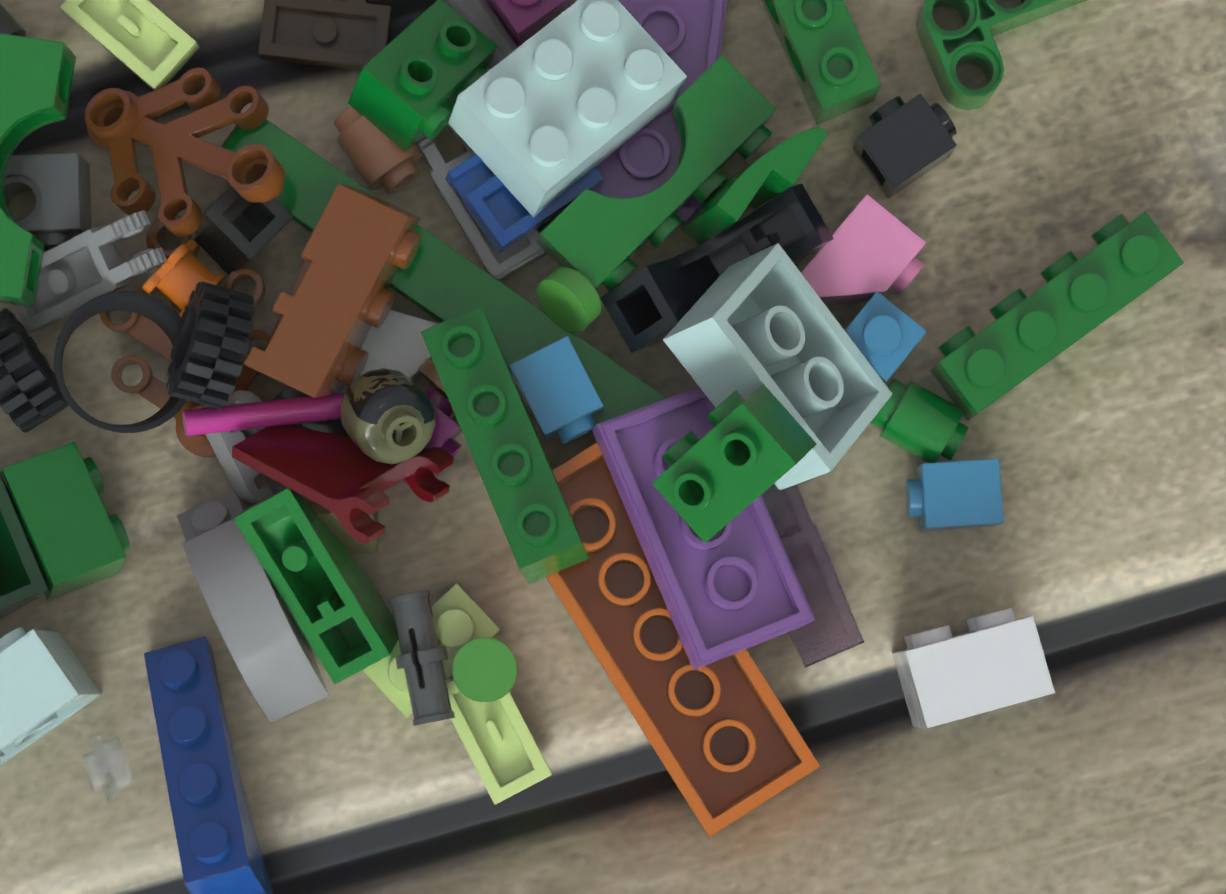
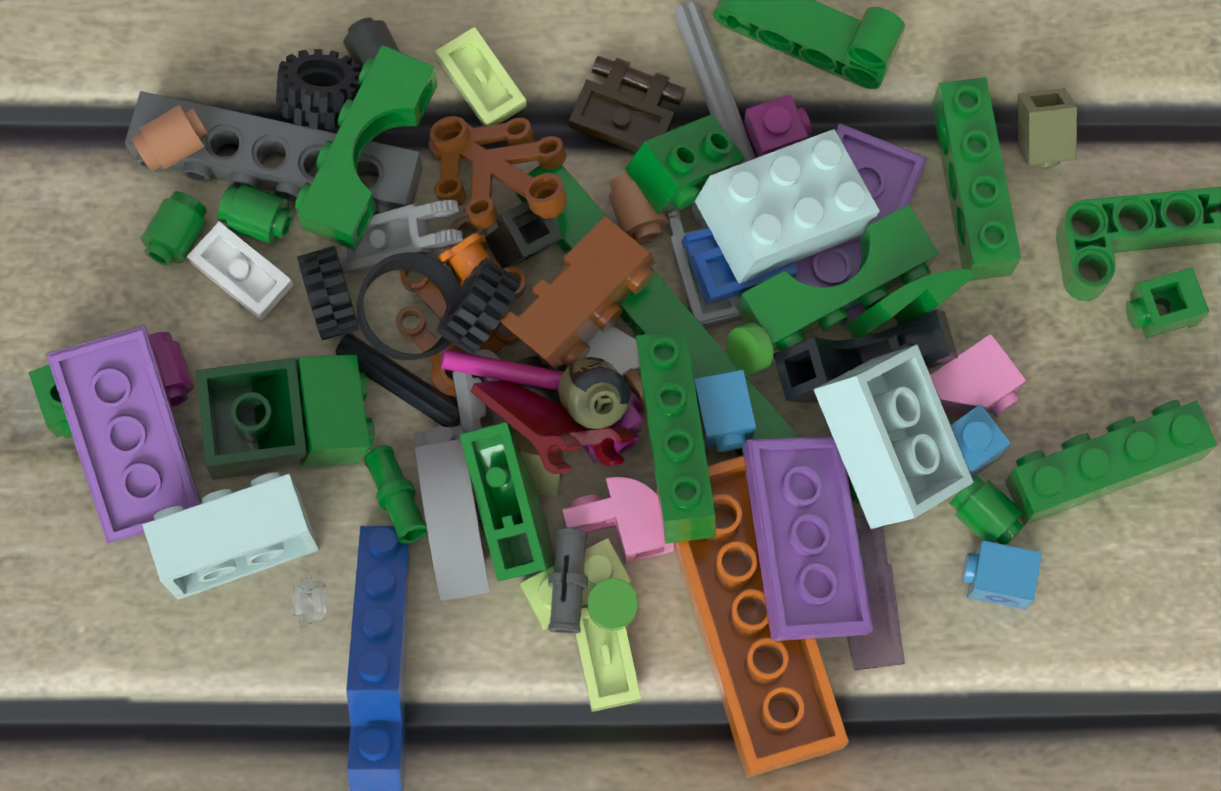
camera: 15 degrees right, 10 degrees down
(140, 454) = (401, 381): none -> black axle
(175, 602) = (395, 494): none -> green pin
(472, 539) = (629, 508): none -> bright pink brick
(734, 462) = (842, 488): green brick -> none
(905, 142) = (1027, 308): black brick -> none
(974, 671) = (983, 703): white brick -> none
(1093, 74) = (1177, 293): none -> green brick

